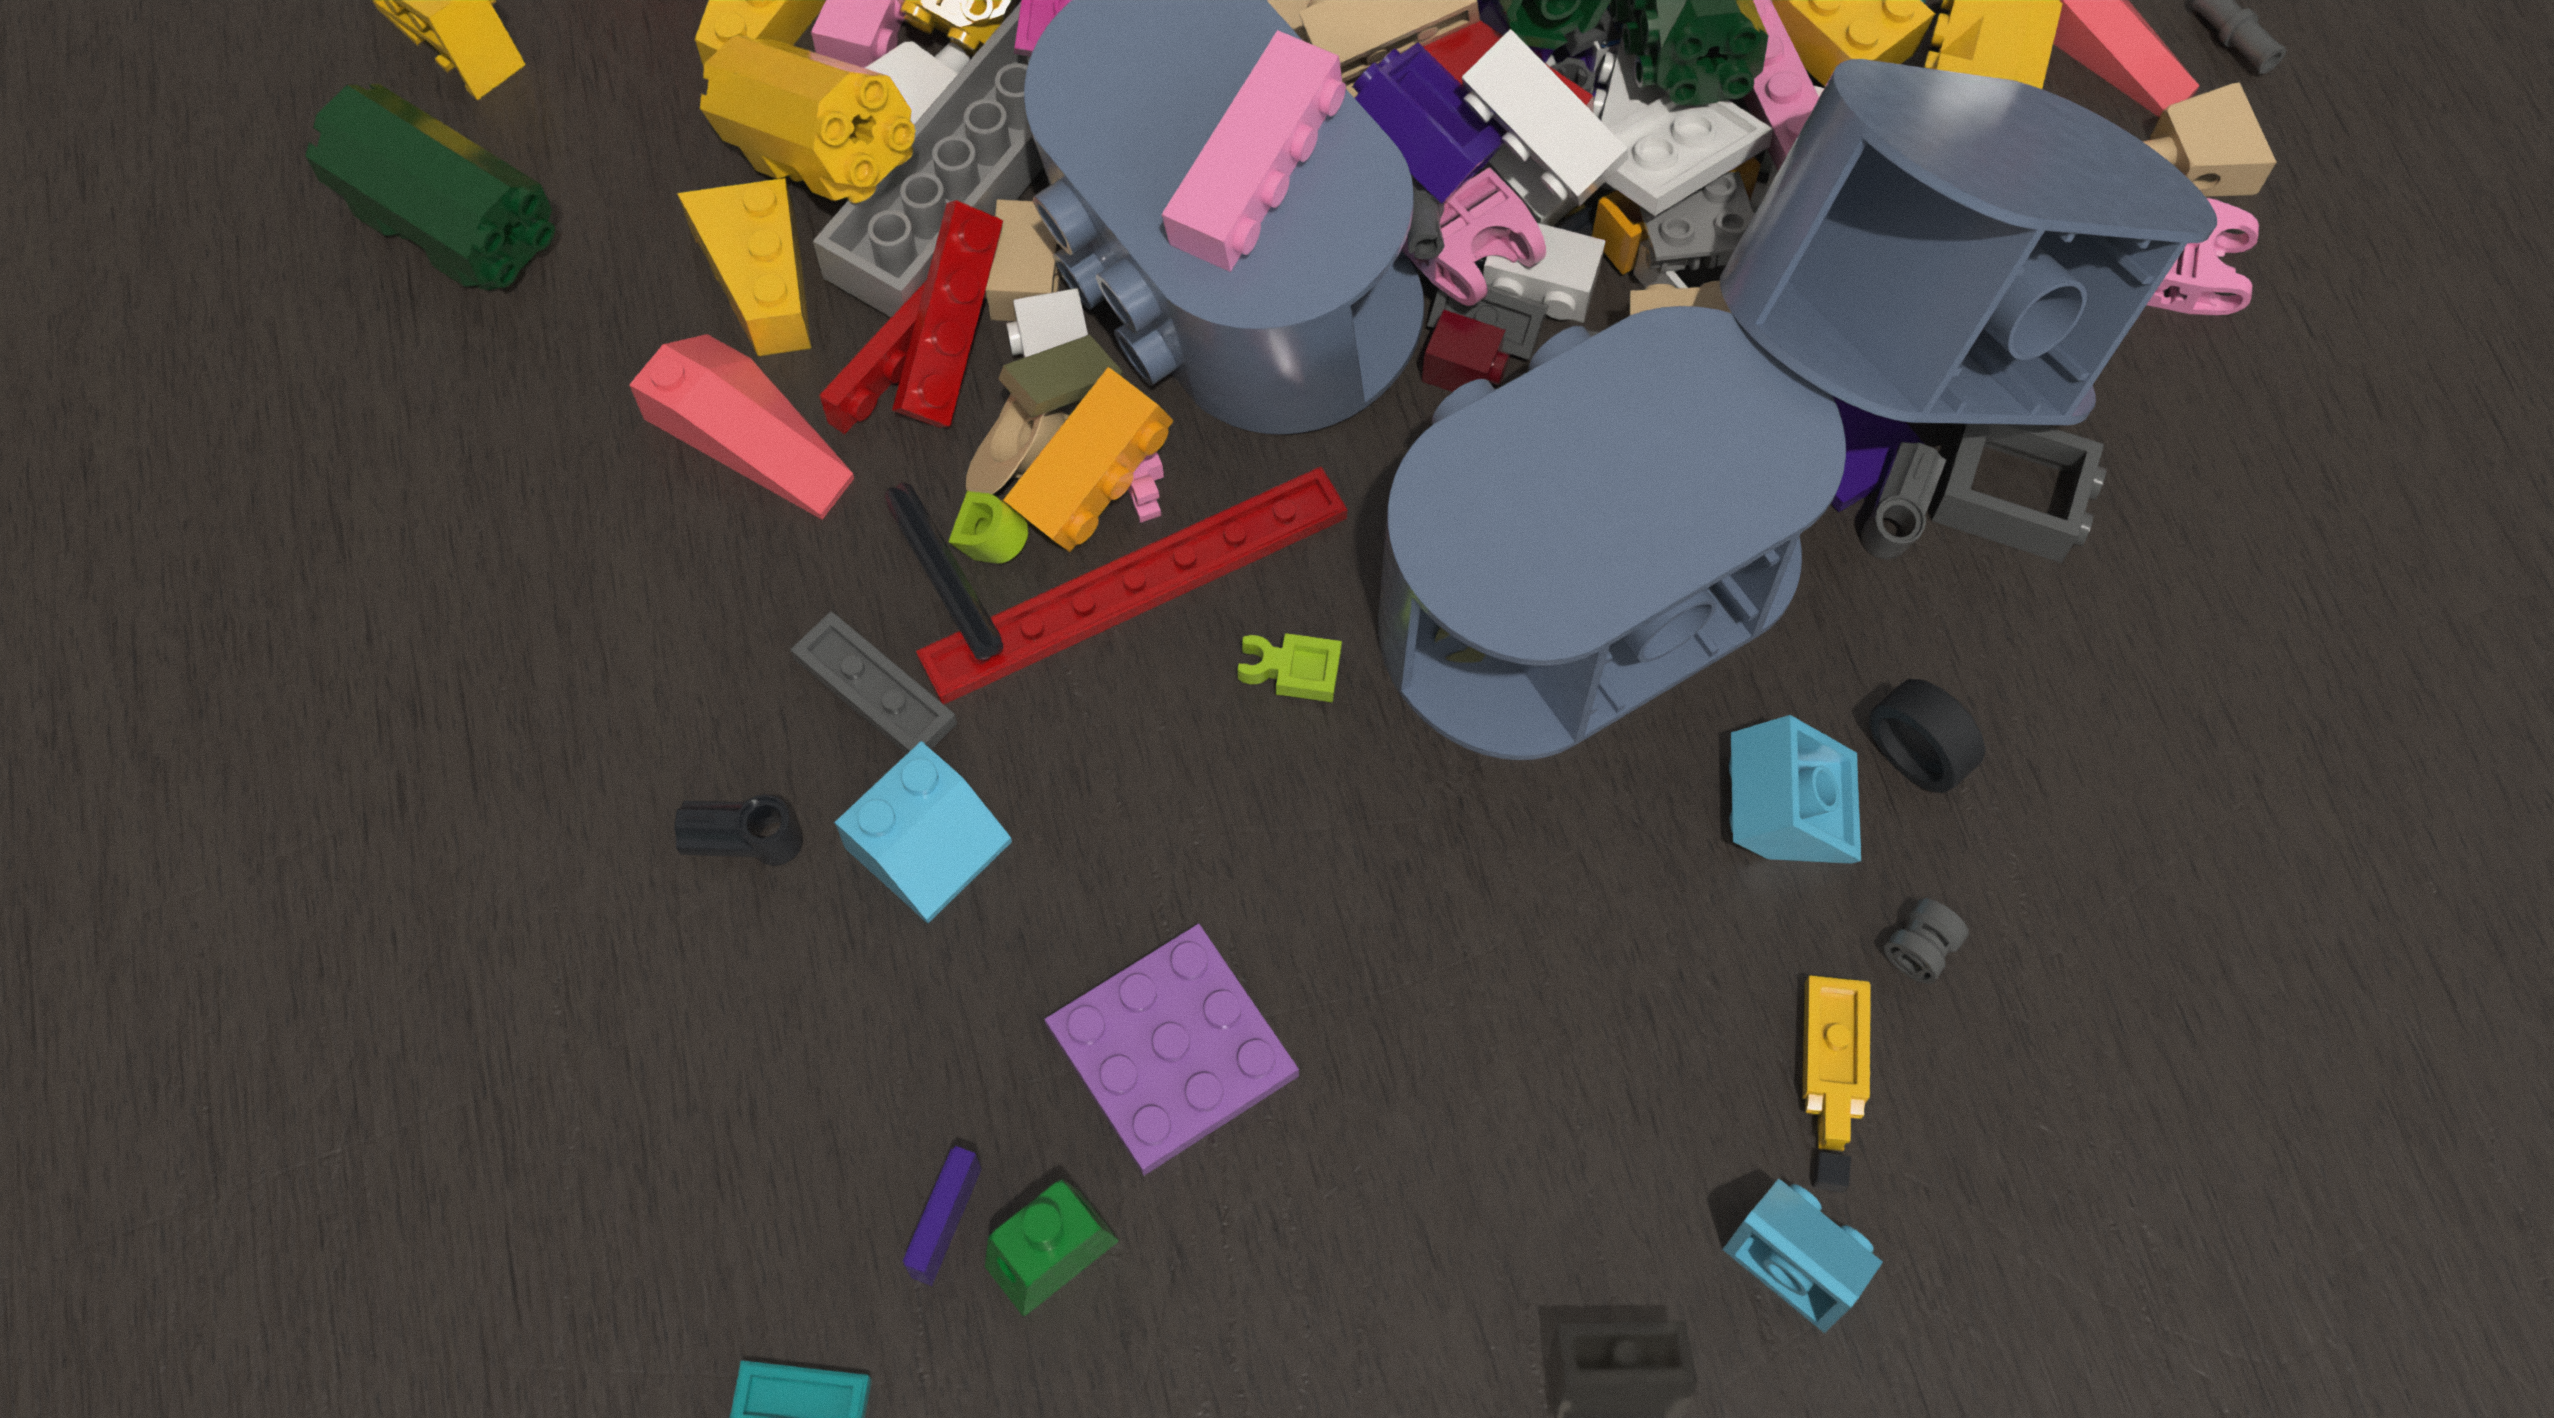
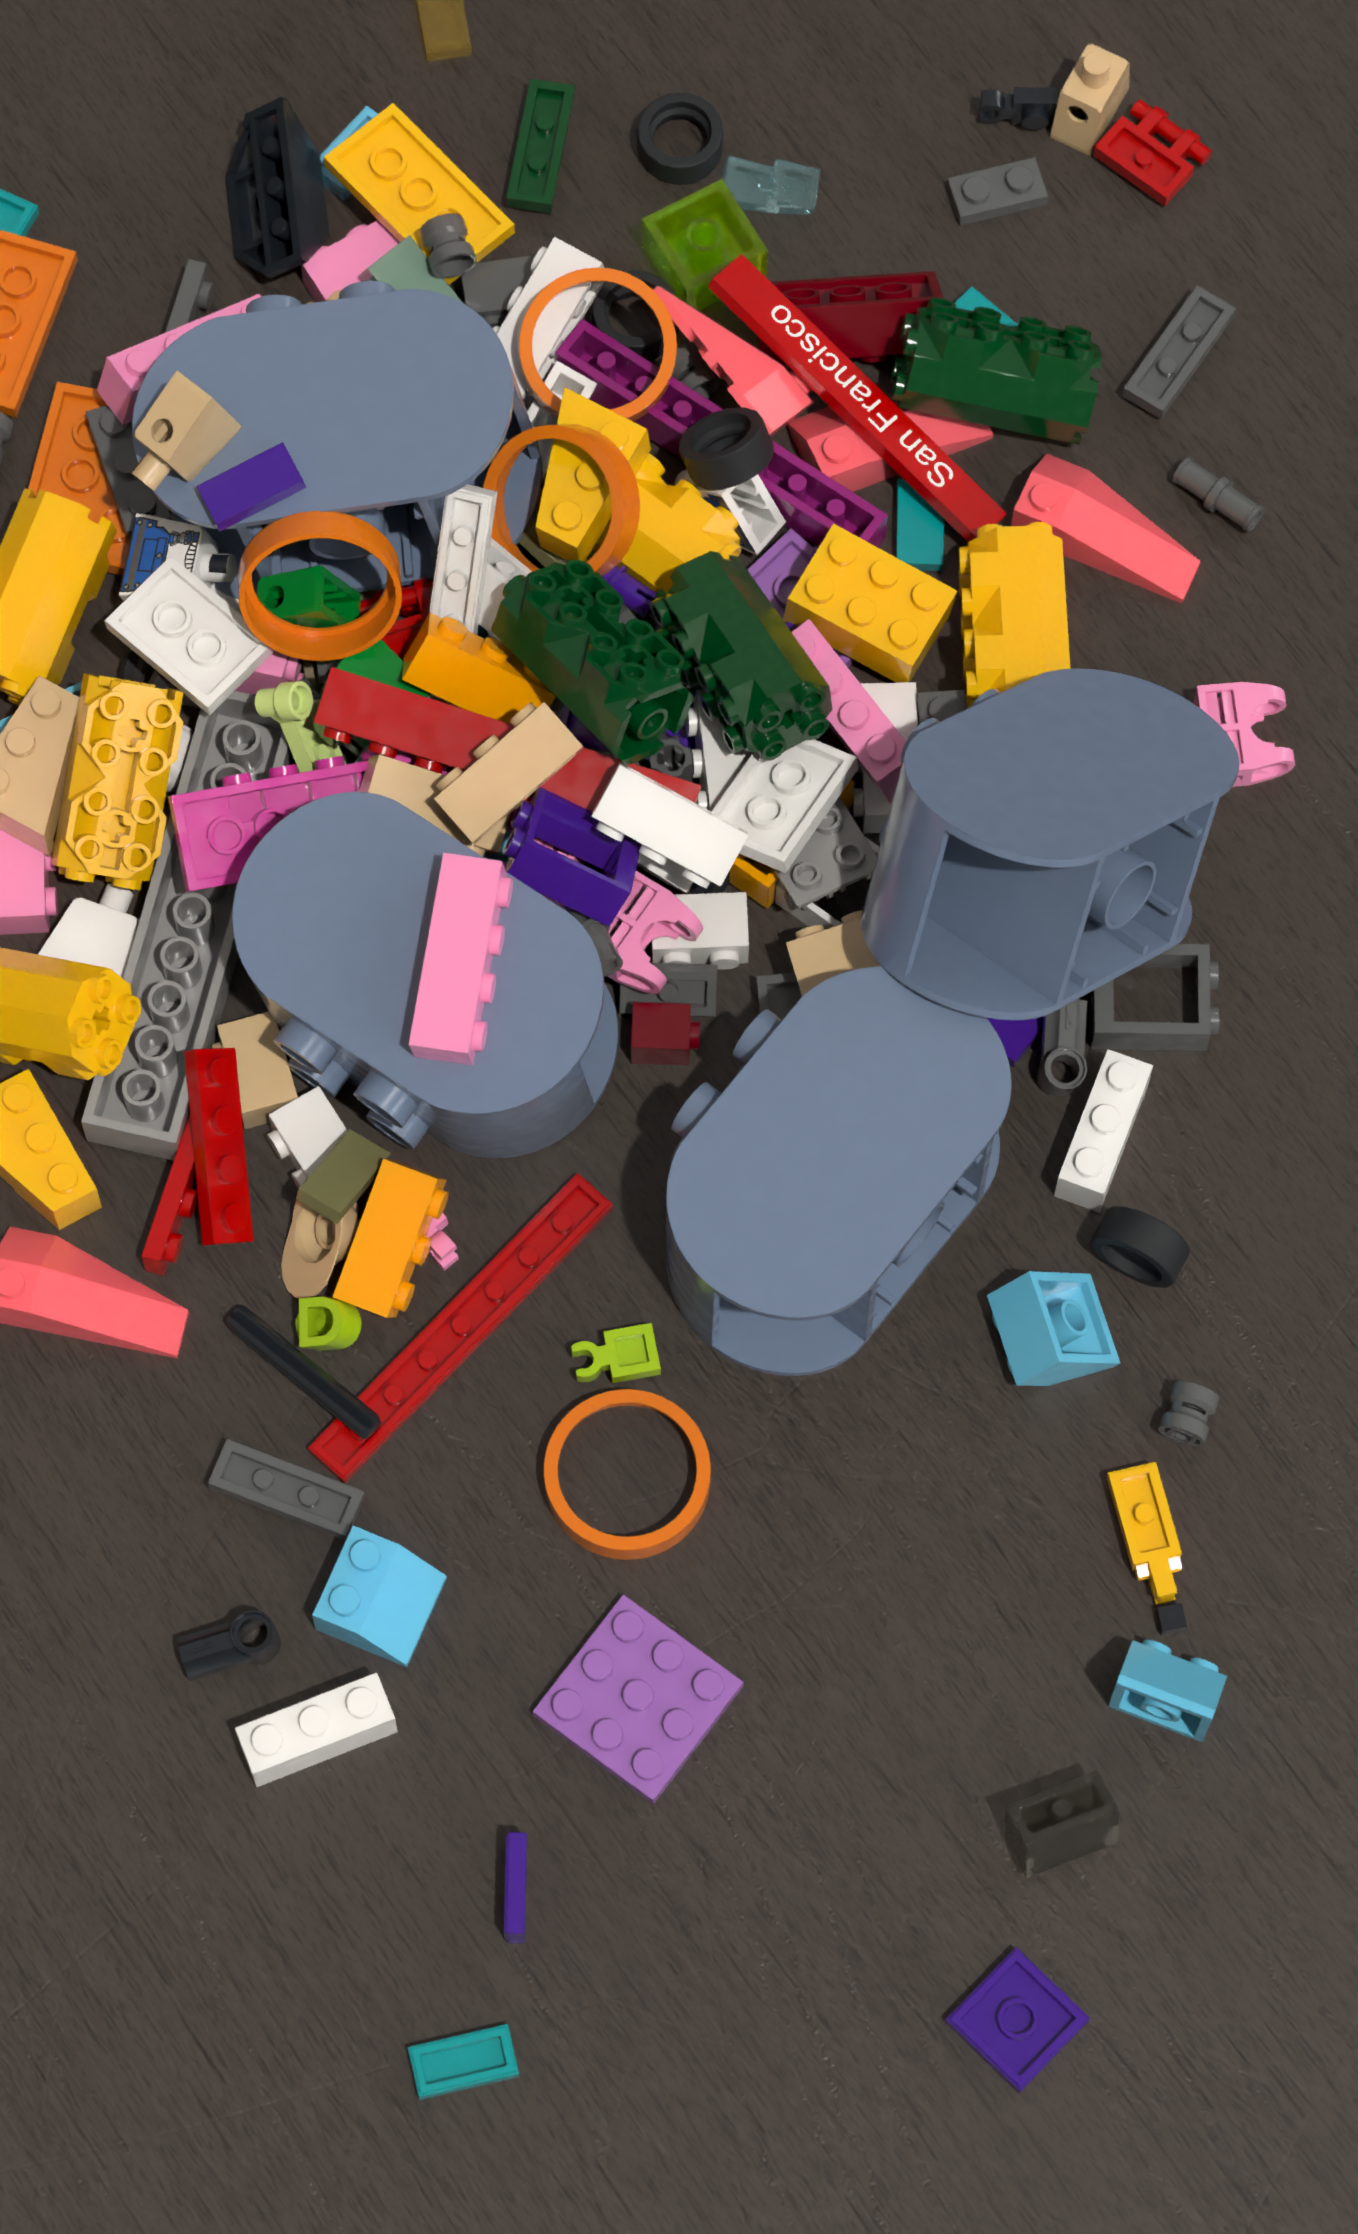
camera: 20 degrees left, 5 degrees up
(790, 954) = (316, 1729): none -> white brick
(1046, 1245) = (604, 1884): green torso -> none
(1247, 877) = (634, 1546): none -> orange piece
(1921, 602) = (1103, 1130): none -> white brick
(2215, 142) = (1221, 624): tan torso -> none

